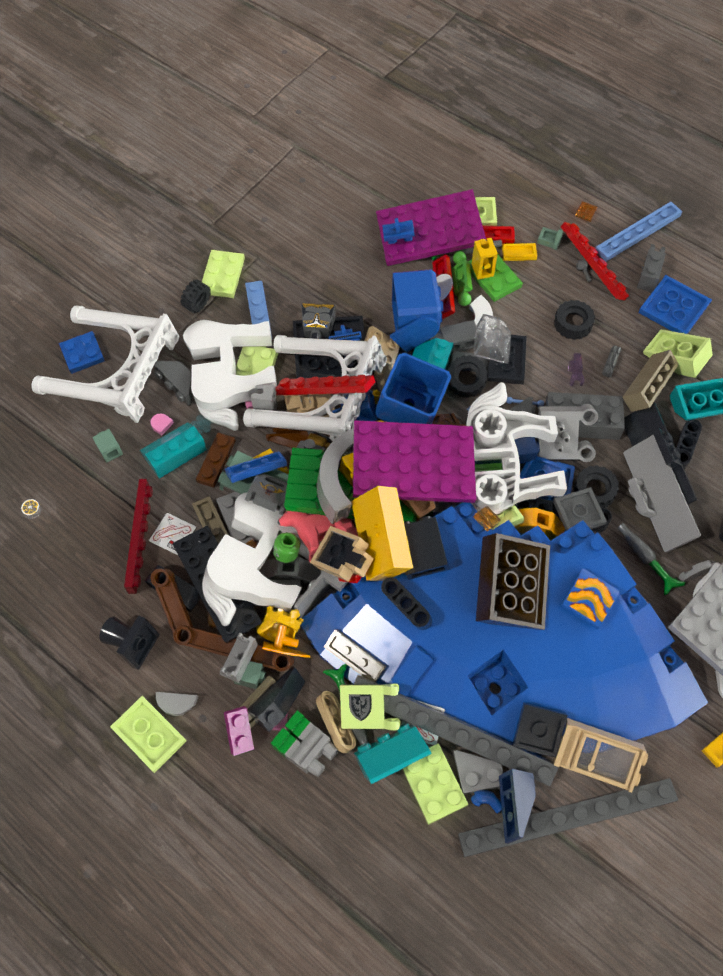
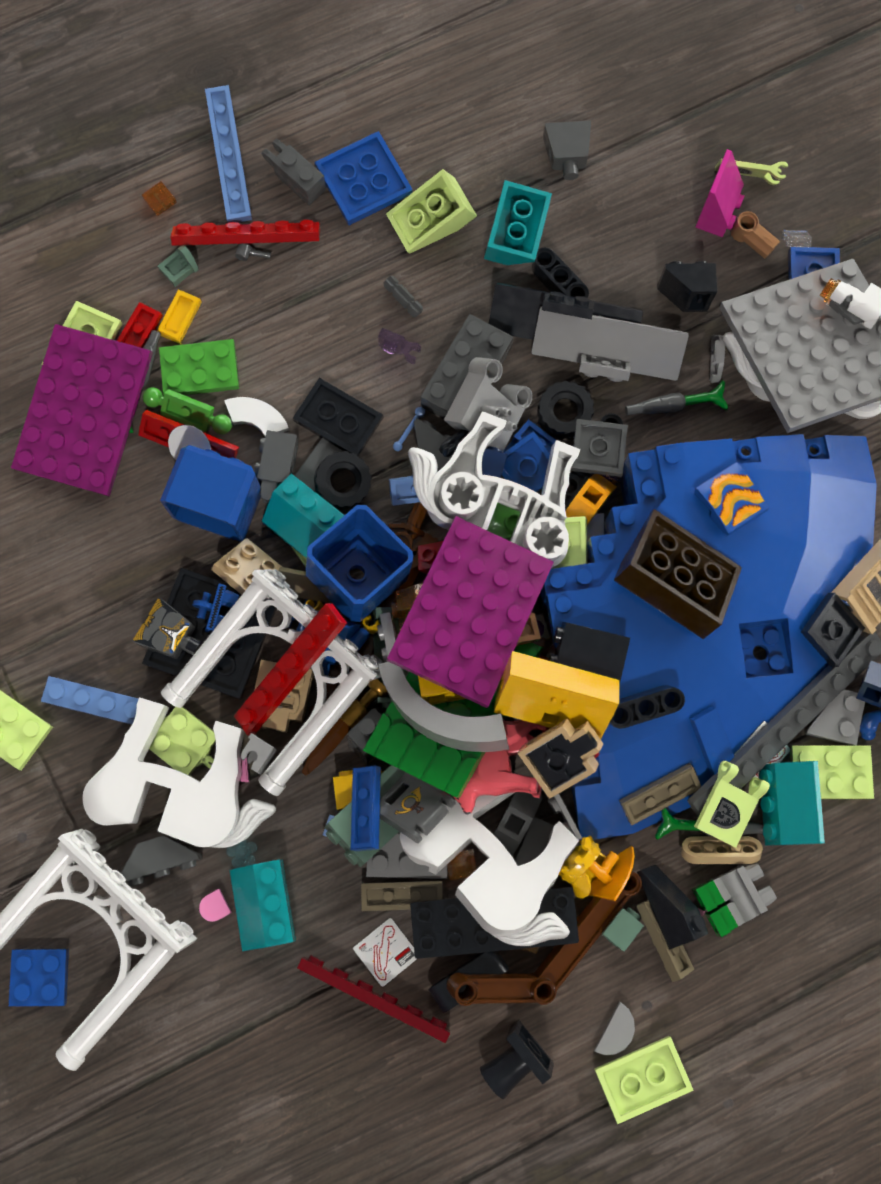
camera: 70 degrees left, 15 degrees up
(31, 508) = (262, 1131): clear tile -> none
(107, 445) = (216, 993): sand green brick -> none
(195, 296) = (33, 780): black tyre -> none
(215, 460) = (306, 854): reddish brown plate -> none
(238, 730) = (689, 968): plate -> none
(239, 658) = (607, 934): light grey hinge -> none
(286, 547) = (499, 816): bright green head -> none
(398, 230) = (75, 456): blue hips -> none
(415, 333) = (254, 514): blue window -> none
(484, 255) = (183, 368): yellow brick -> none
(487, 518) = (579, 561): clear orange tile -> none
(492, 339) = (311, 424): clear slope -> none
(572, 331) = (318, 288): black tyre -> none
(650, 381) = (463, 269): dark tan brick -> none

